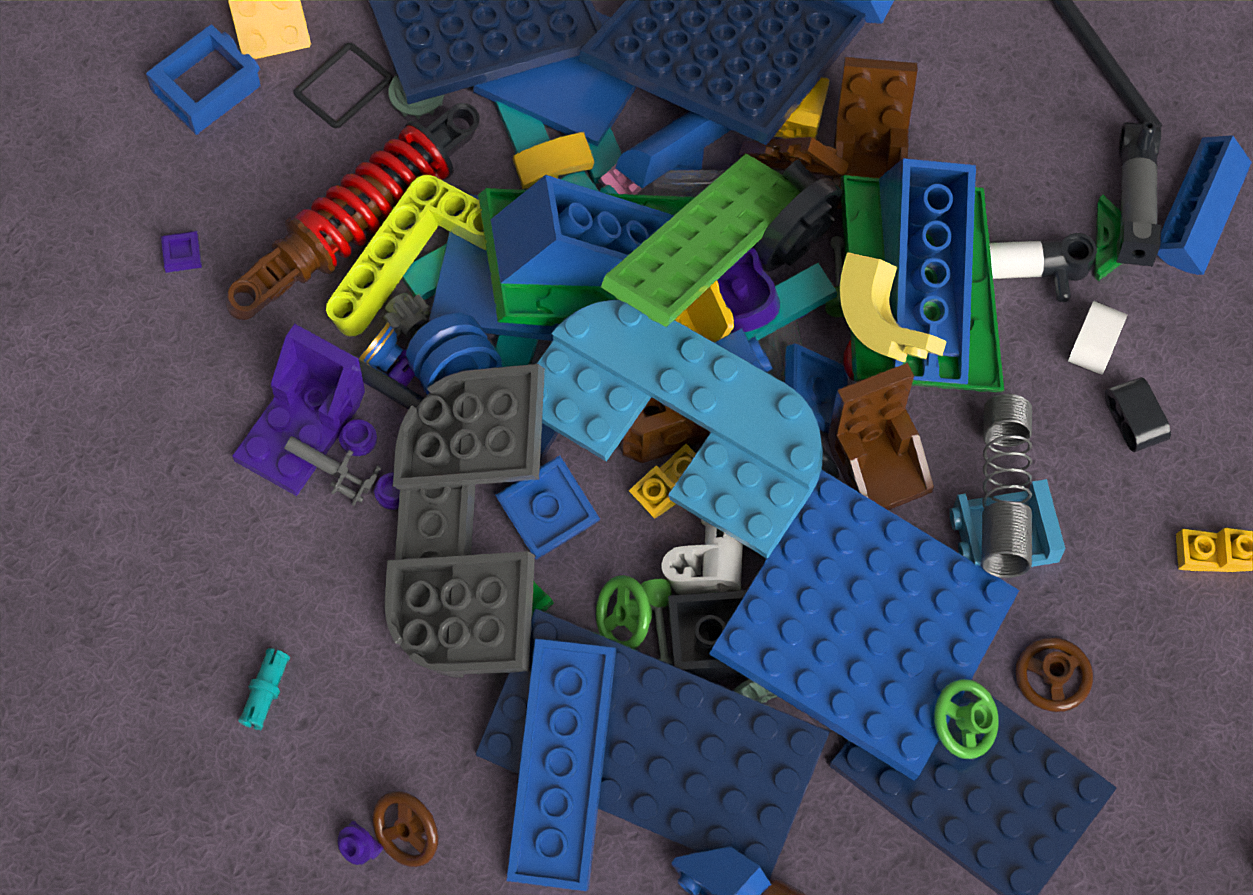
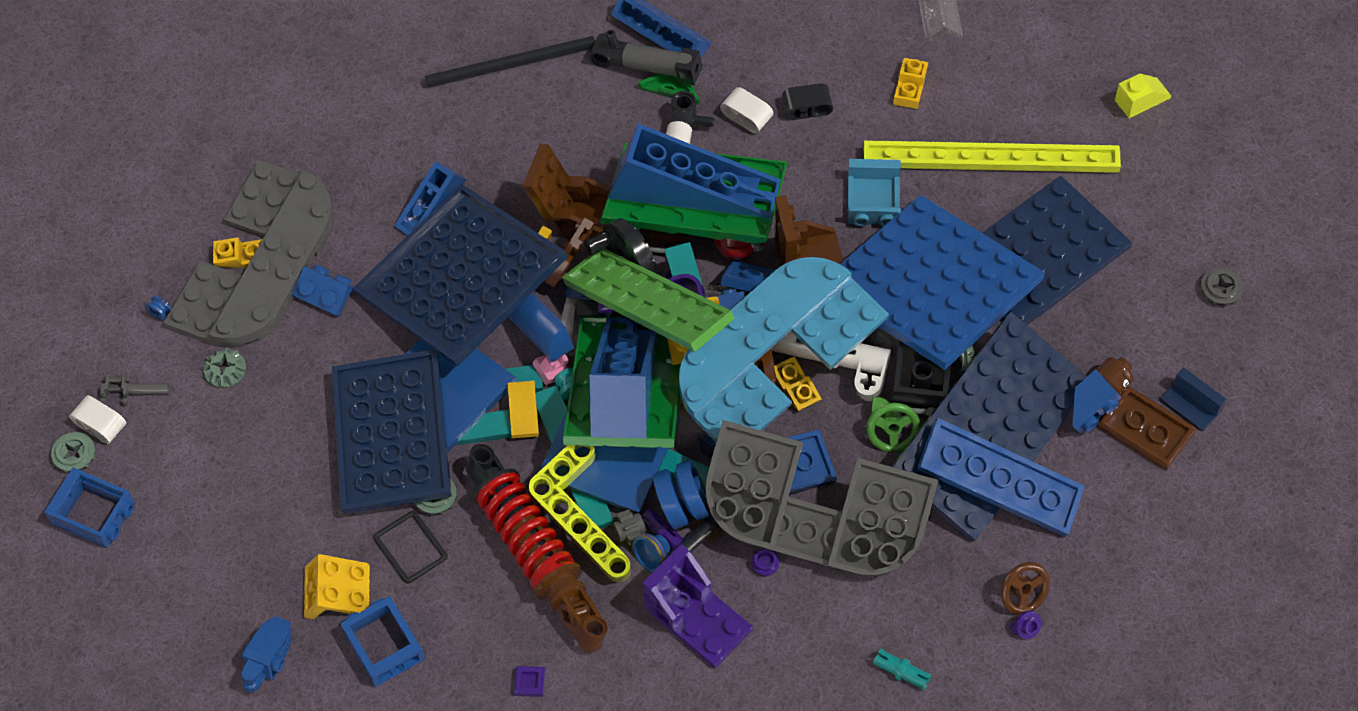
camera: 75 degrees left, 5 degrees down
(332, 467) = (744, 592): dark grey piece -> none
(358, 437) = (719, 578): dark purple plate -> none
(866, 307) = (733, 215): light yellow arch -> none
(972, 719) = (1011, 233): bright green piece -> none
(1006, 523) = (882, 185): dark grey piece -> none
(1060, 661) = (978, 188): reddish brown piece -> none
(1123, 691) = (997, 156): none -> neon yellow plate

